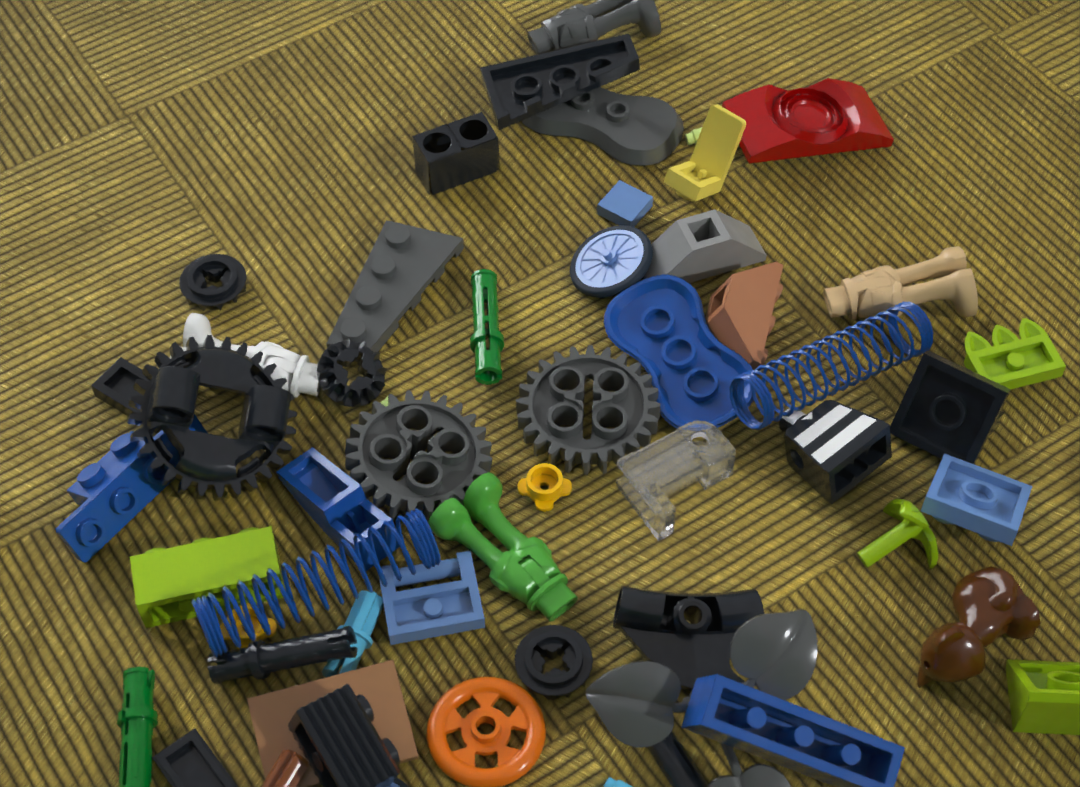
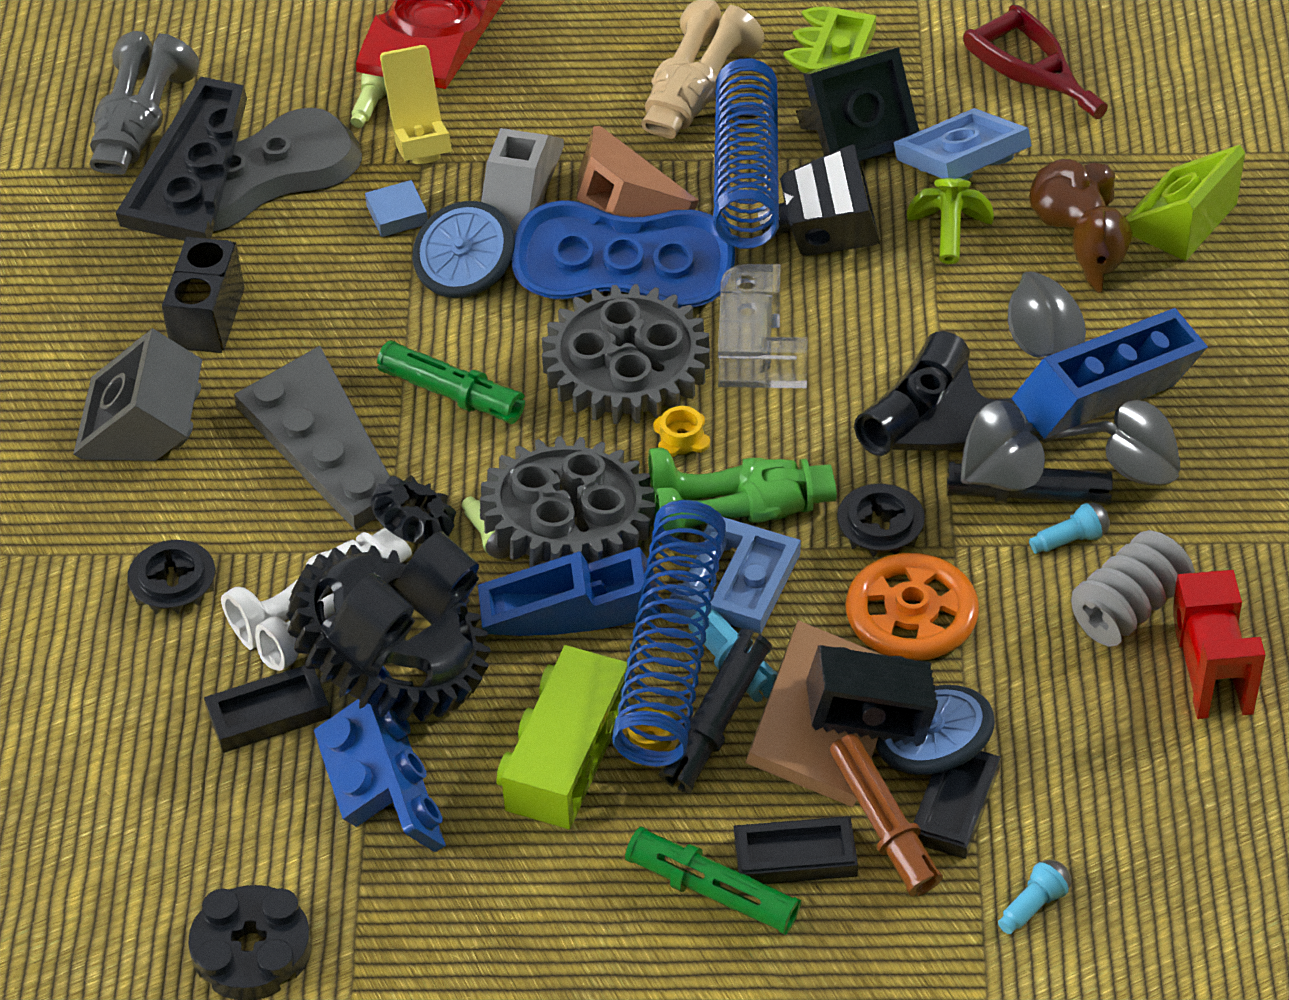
camera: 55 degrees left, 5 degrees down
(341, 180) = (140, 402): none -> dark grey slope

